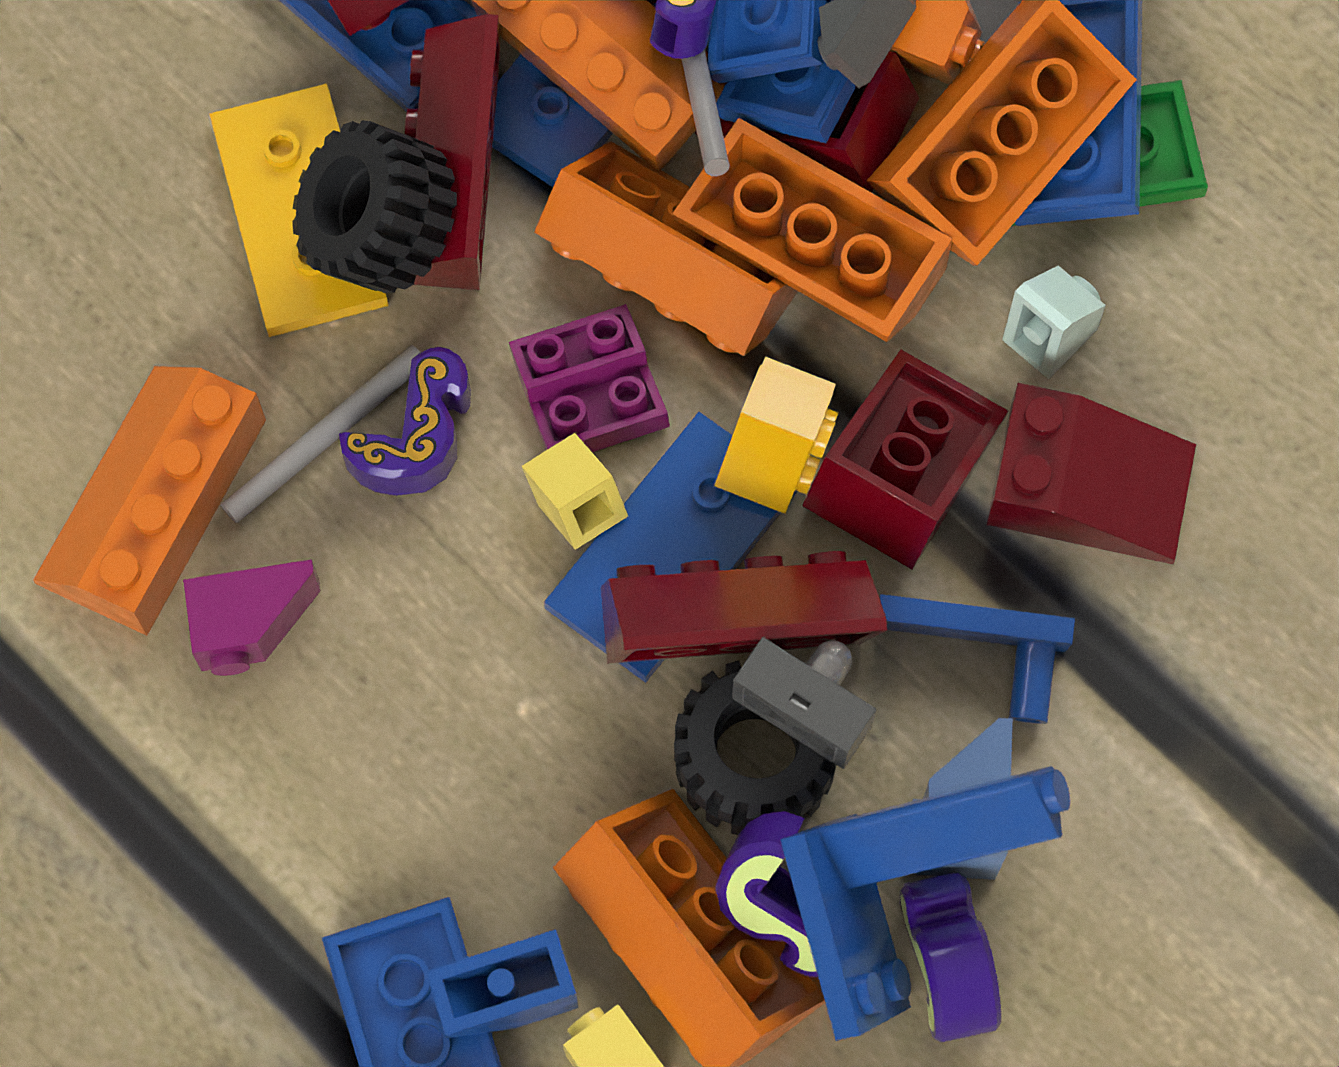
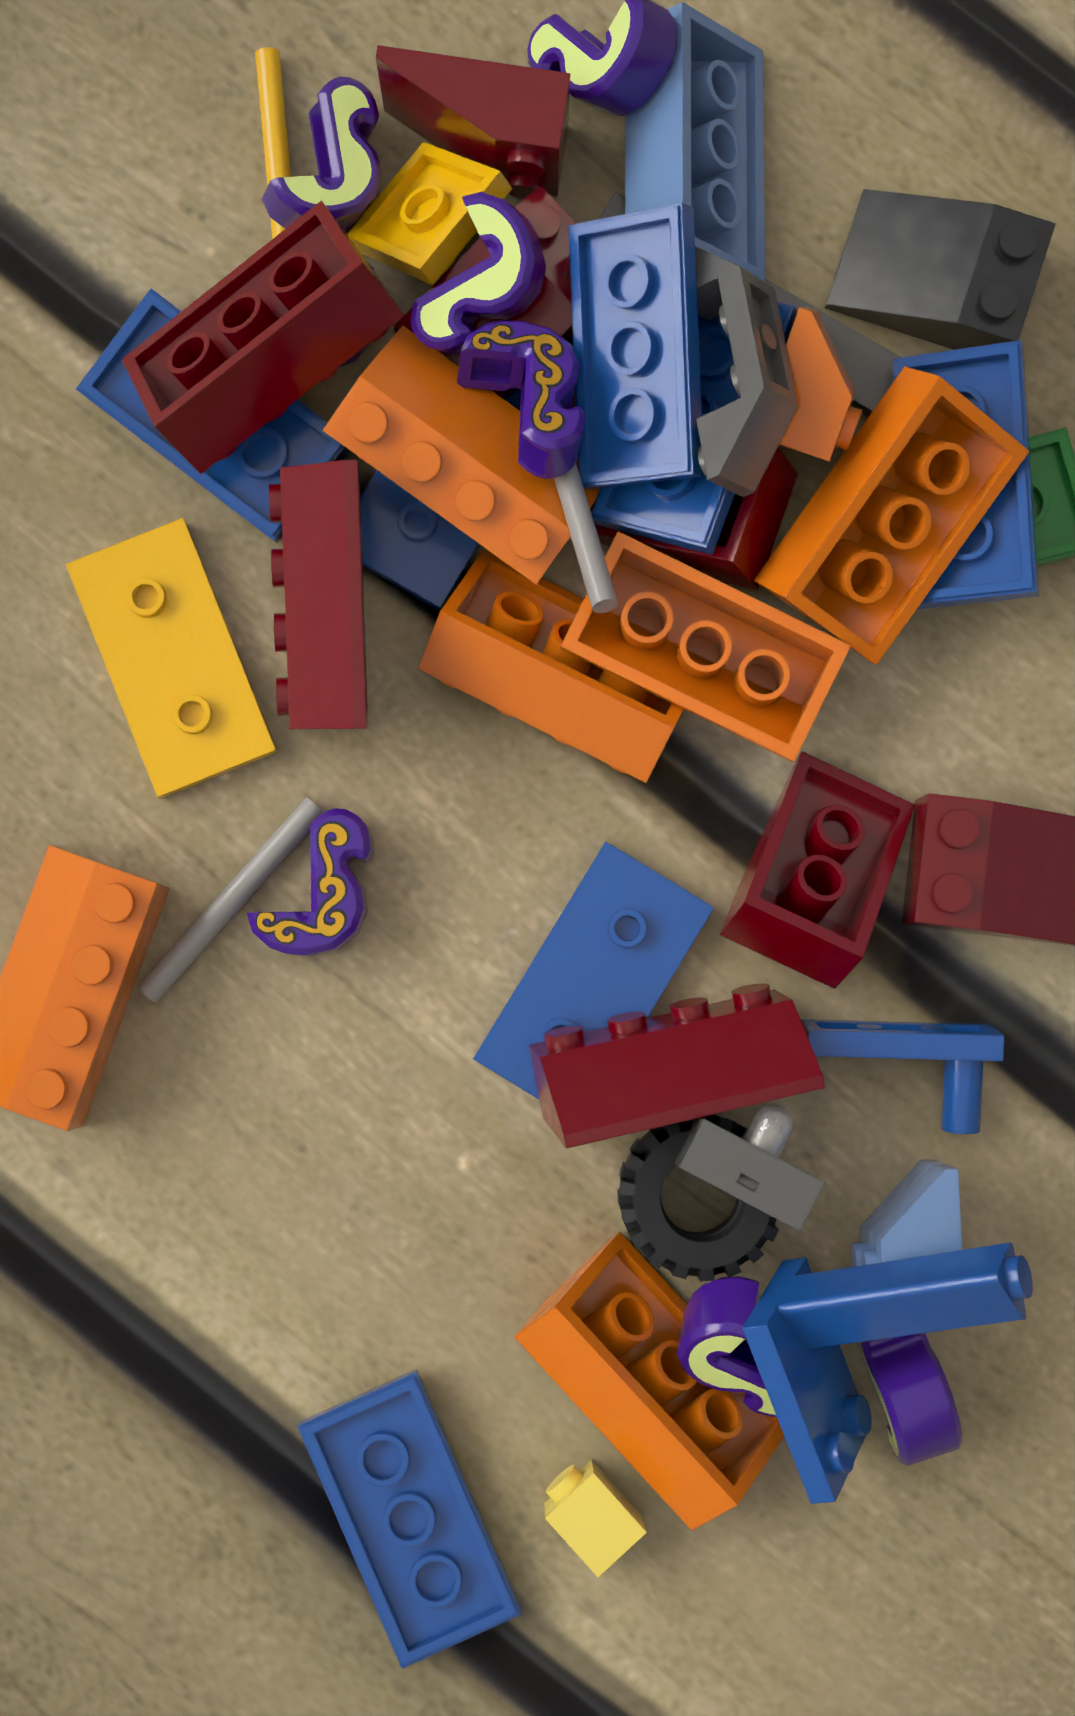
camera: 10 degrees left, 15 degrees up
(246, 613) = (175, 1107): magenta slope -> none
(374, 207) = (251, 676): black tyre -> none
(503, 987) = (480, 1467): blue slope -> none
(575, 491) = (490, 944): light yellow brick -> none
(590, 381) = (491, 820): magenta slope -> none
(774, 435) = (693, 869): yellow brick -> none
(1052, 319) = (958, 709): light aqua slope -> none

